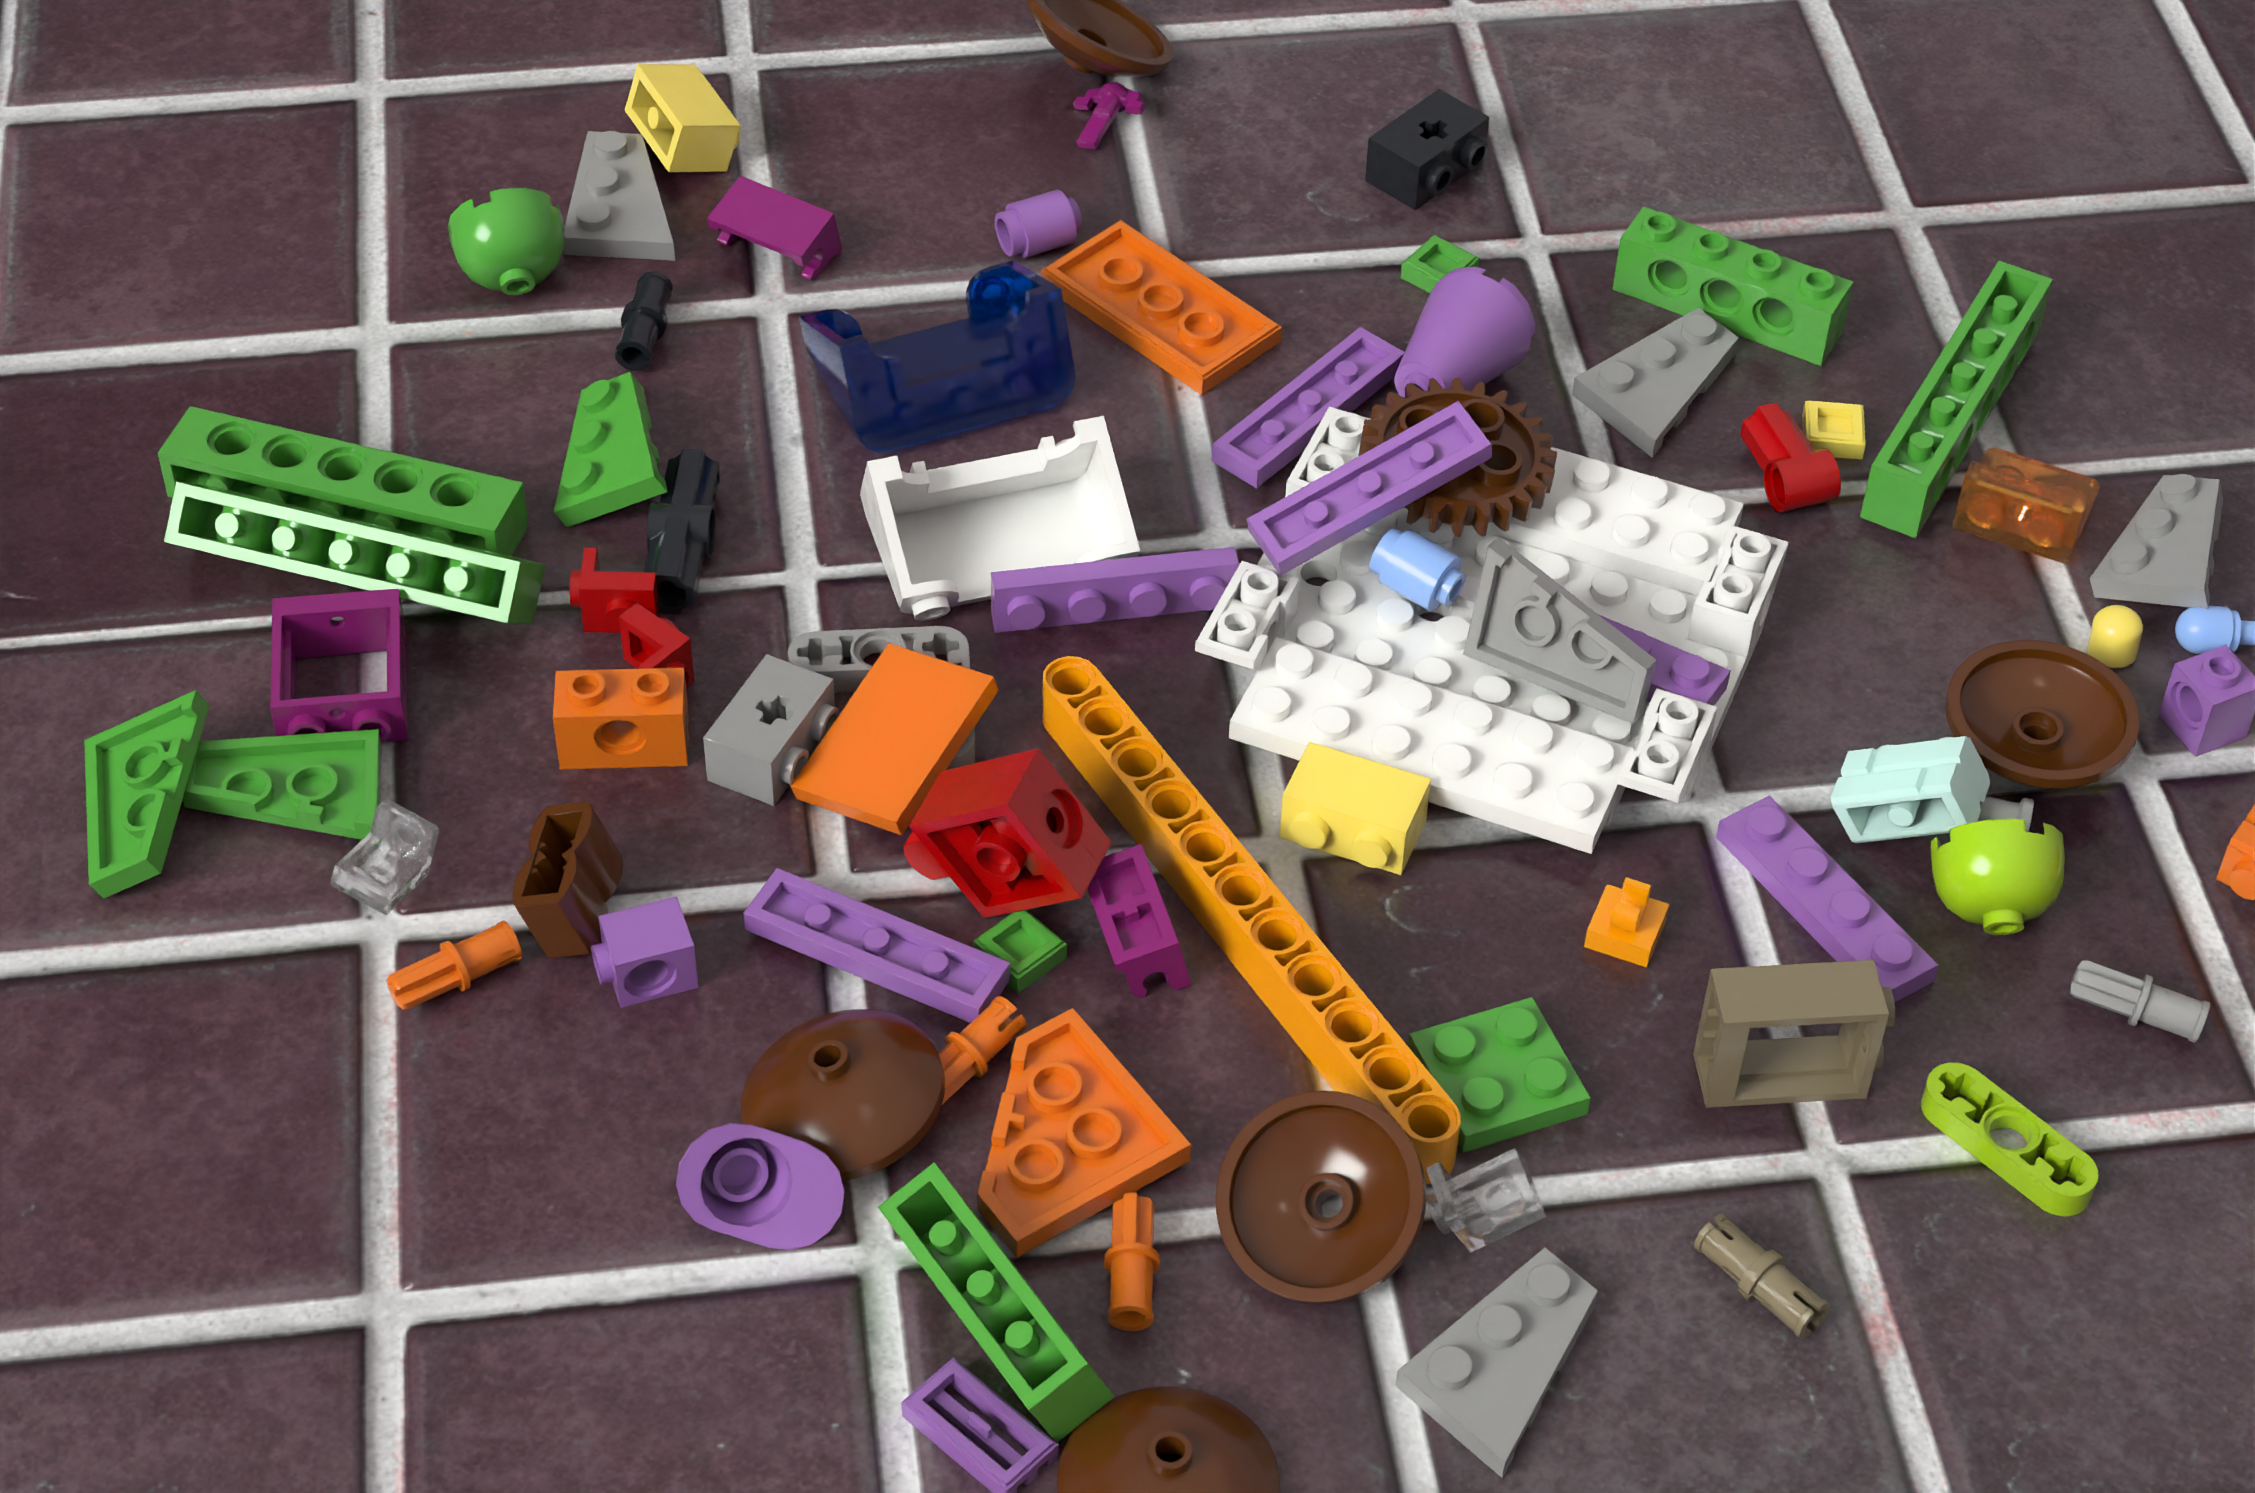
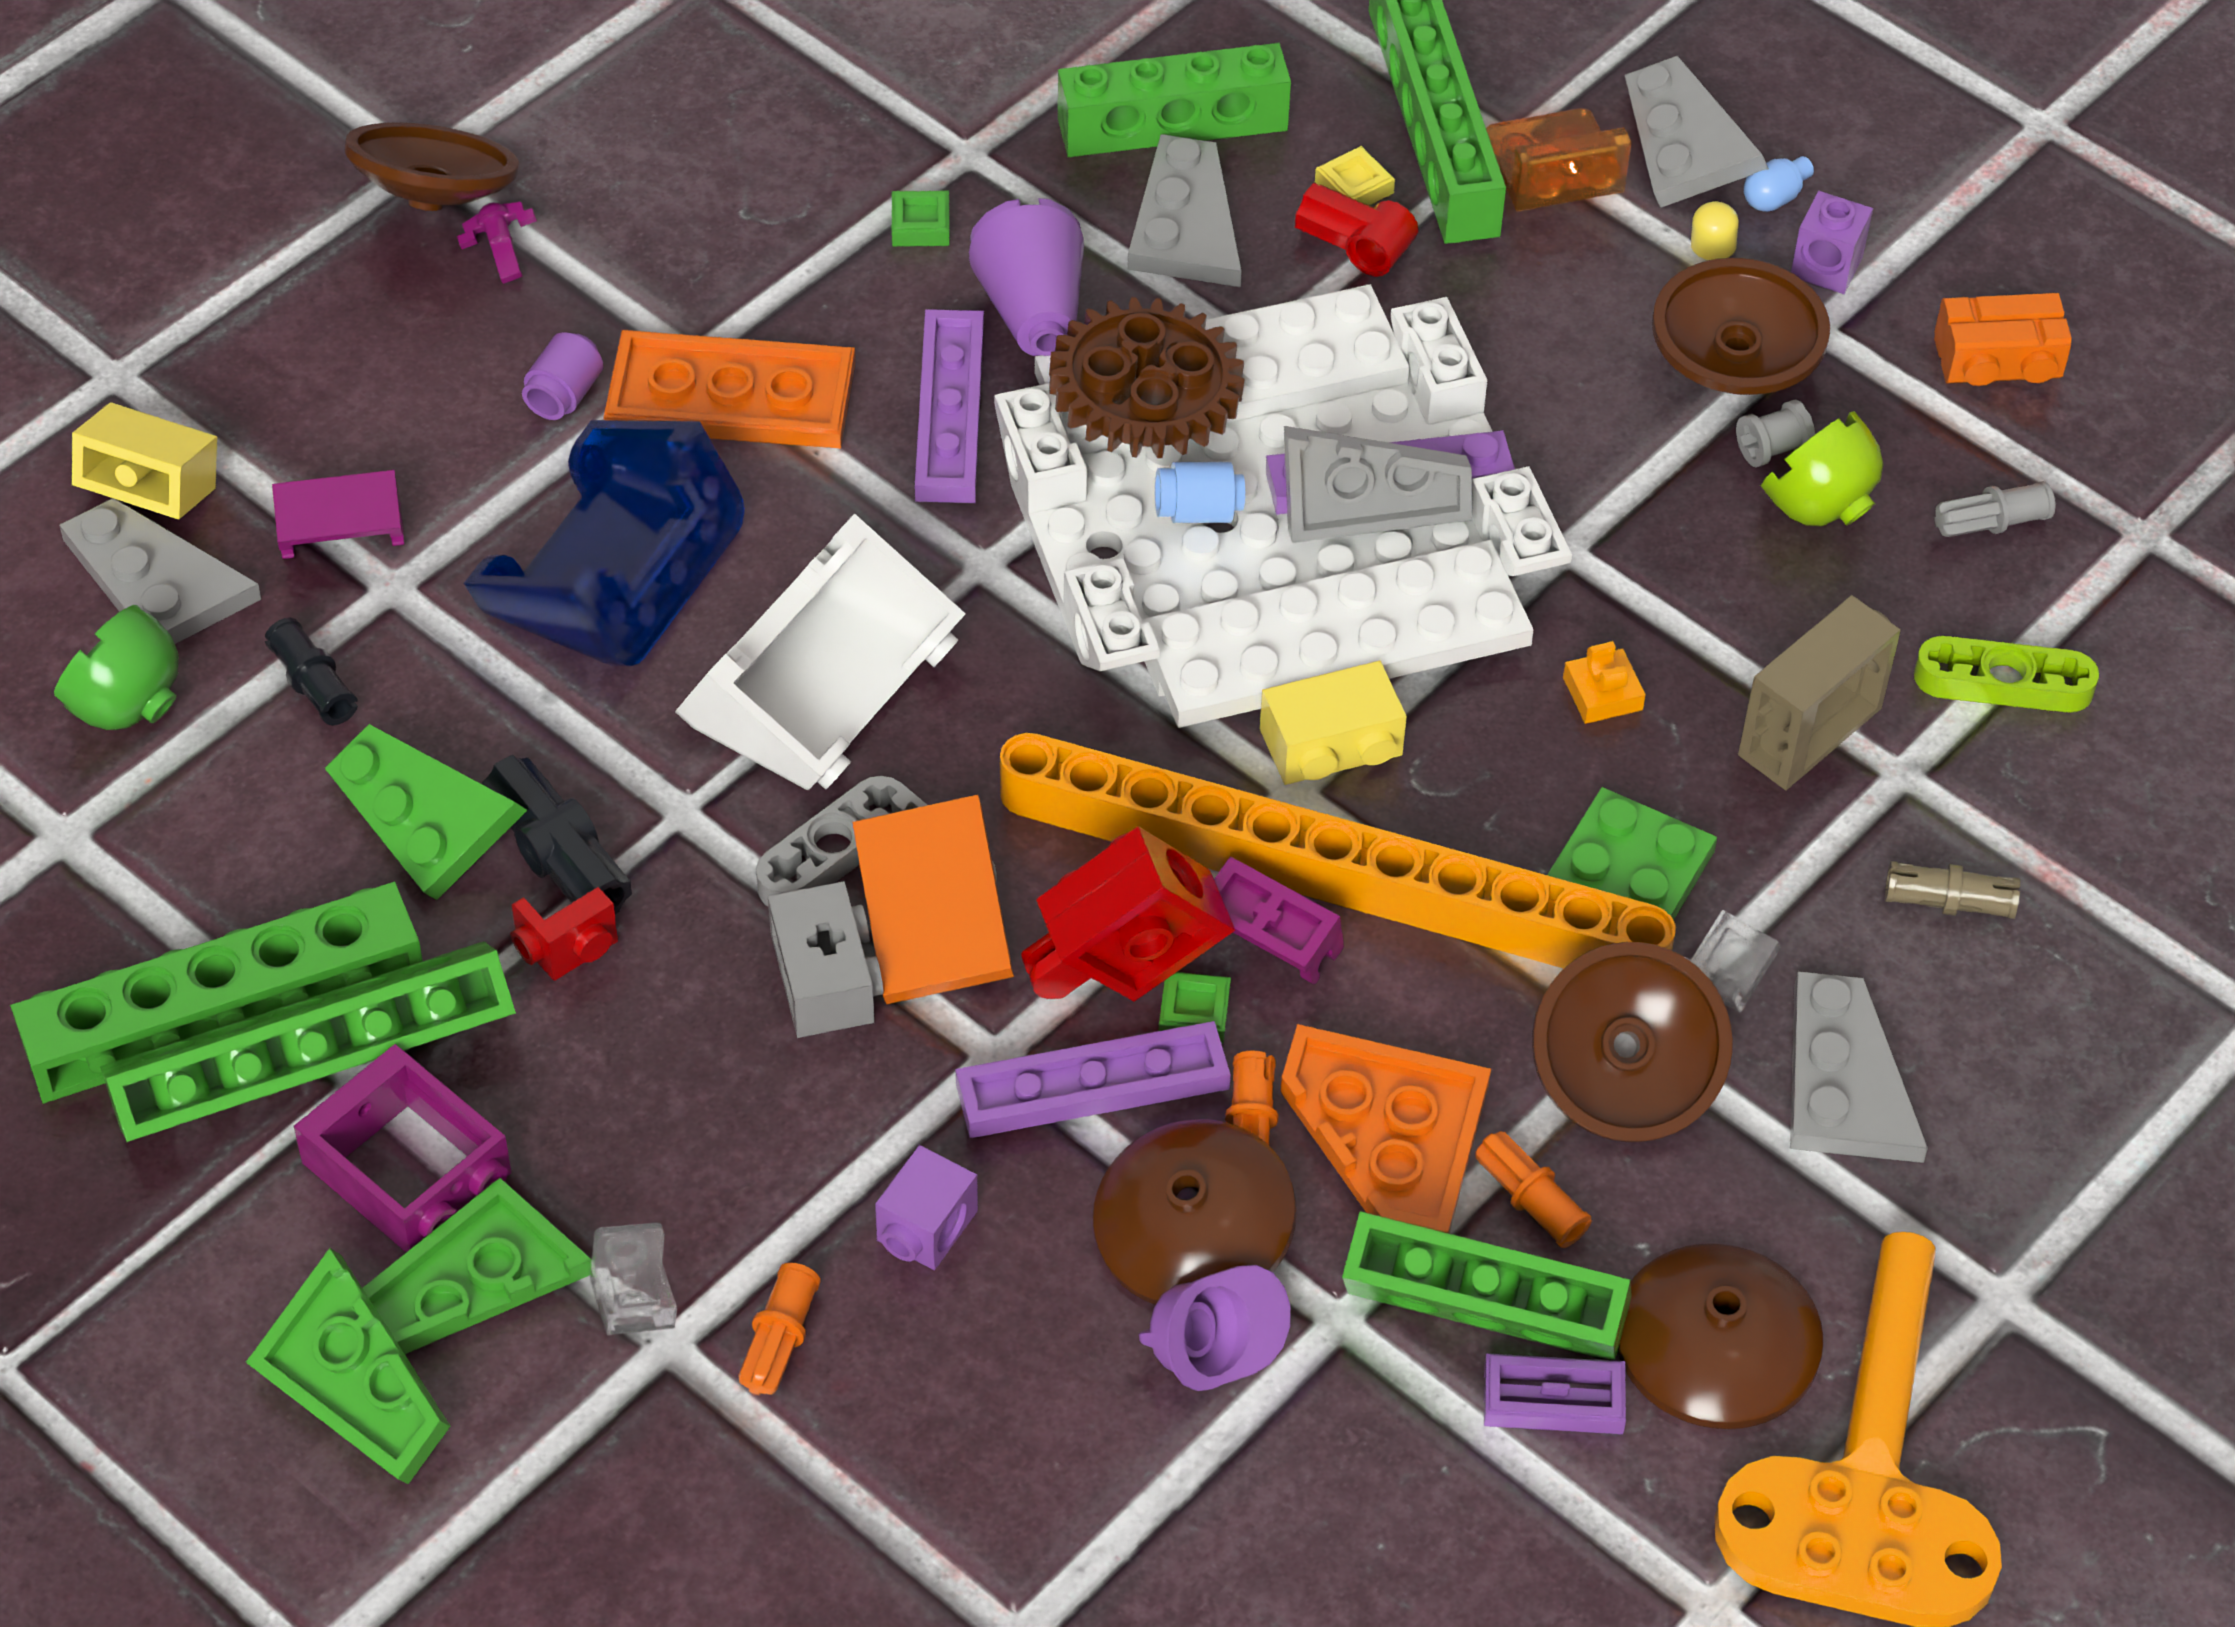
camera: 40 degrees left, 5 degrees up
(567, 879) = (811, 1192): reddish brown brick -> none
(621, 718) = (693, 1030): orange brick -> none
(654, 642) = (658, 955): red bracket -> none
(1110, 589) = (965, 661): medium lavender plate -> none
(1369, 488) = (1128, 446): medium lavender plate -> none
(1427, 149) = (813, 116): black brick -> none
(1823, 896) = (1715, 572): medium lavender plate -> none
(1910, 789) = (1714, 445): light aqua brick -> none

